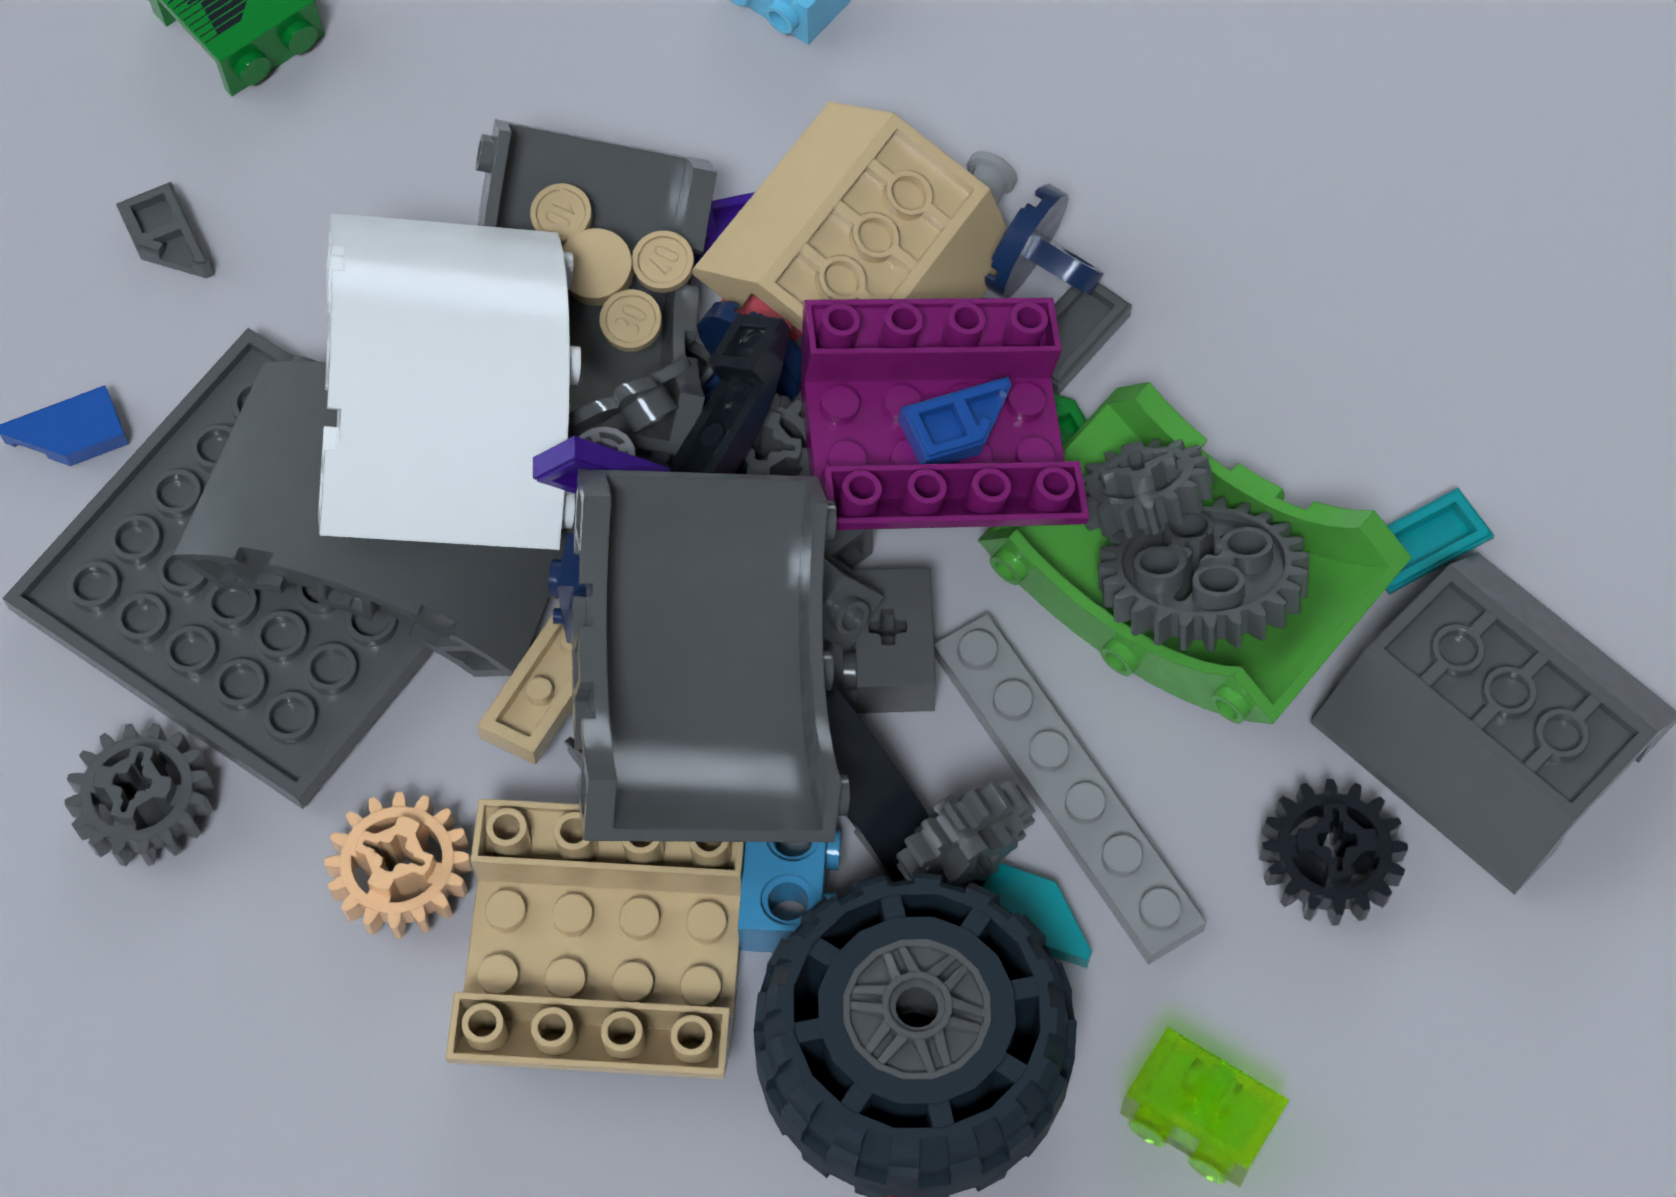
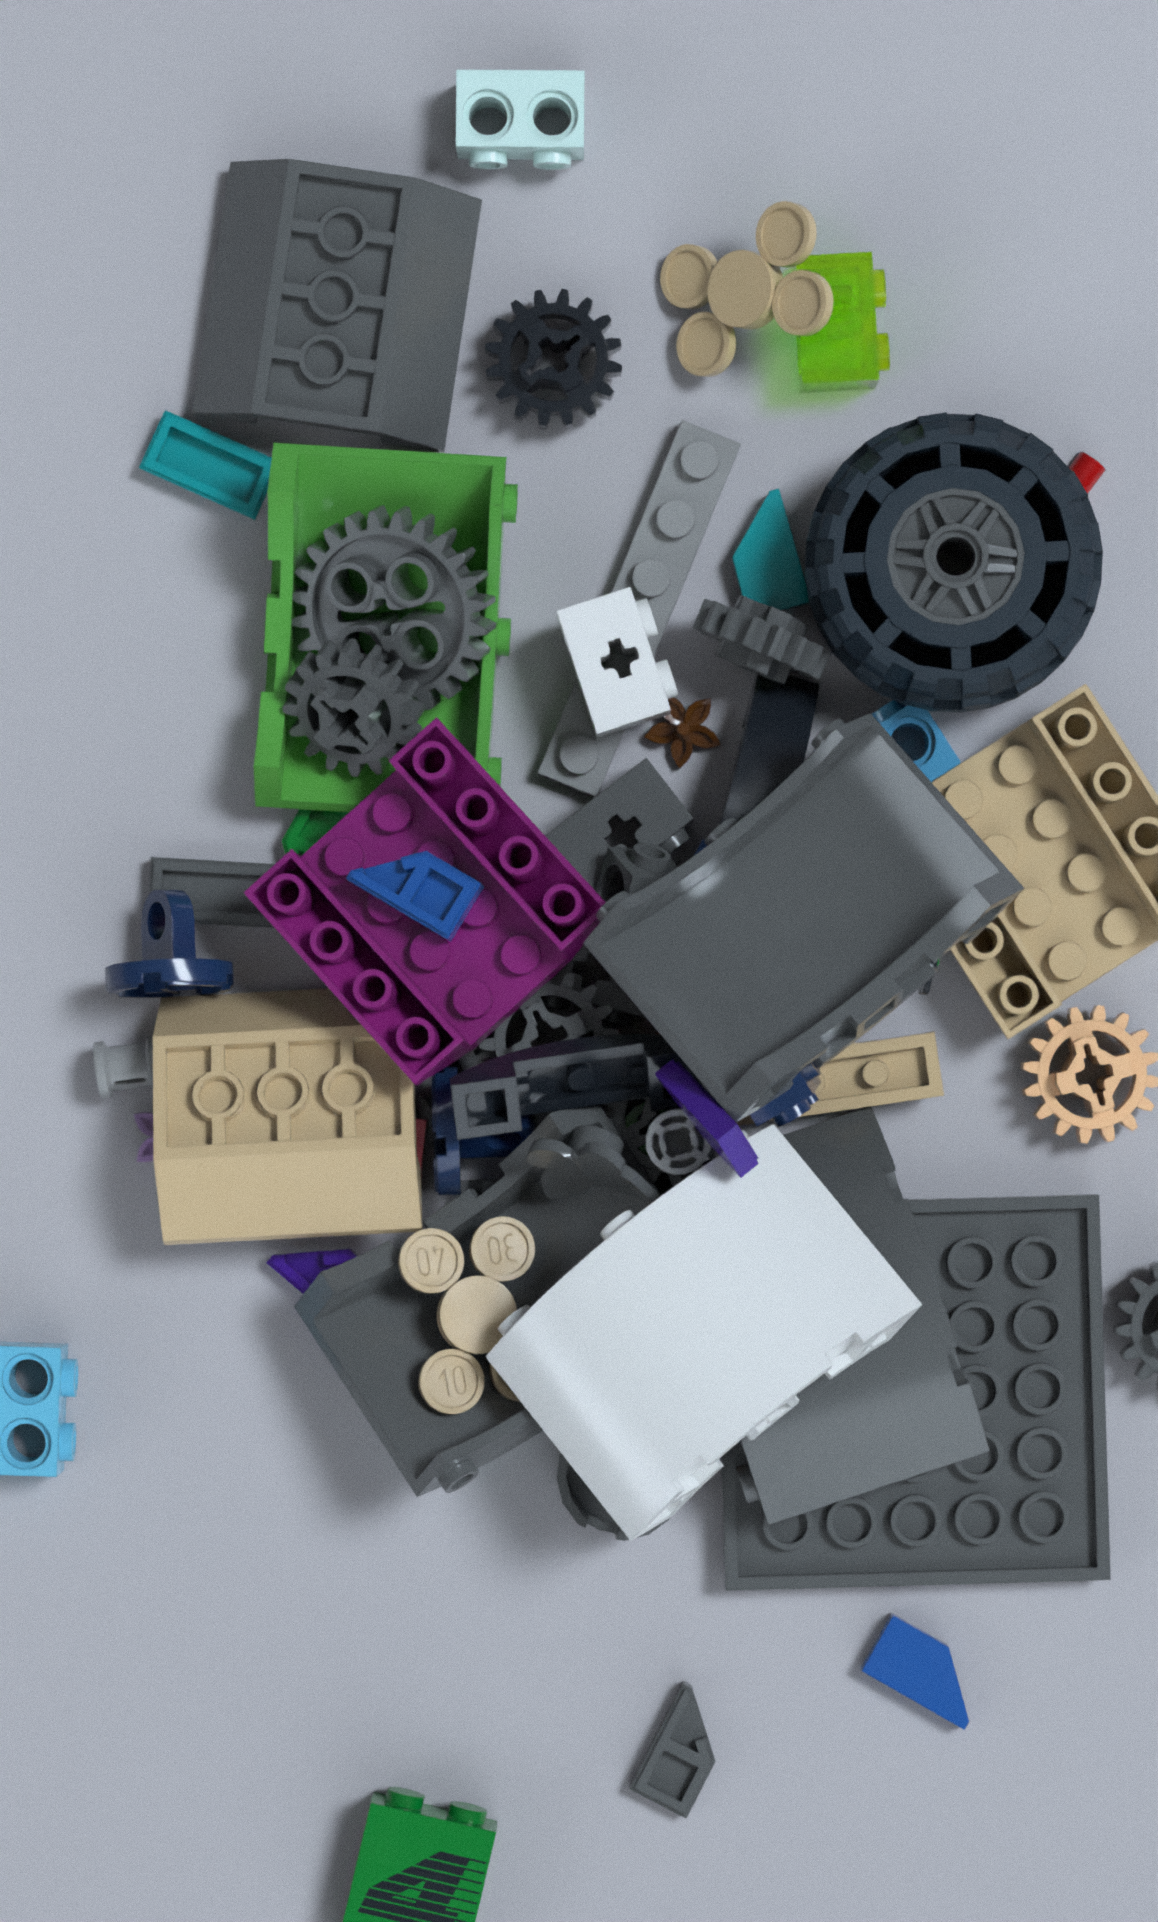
camera: 125 degrees left, 25 degrees up
(940, 753) = (684, 729): none -> reddish brown plant
(1013, 683) = (588, 634): none -> white brick
(1286, 1039) = (746, 289): none -> tan piece
(1580, 972) = (520, 98): none -> light aqua brick

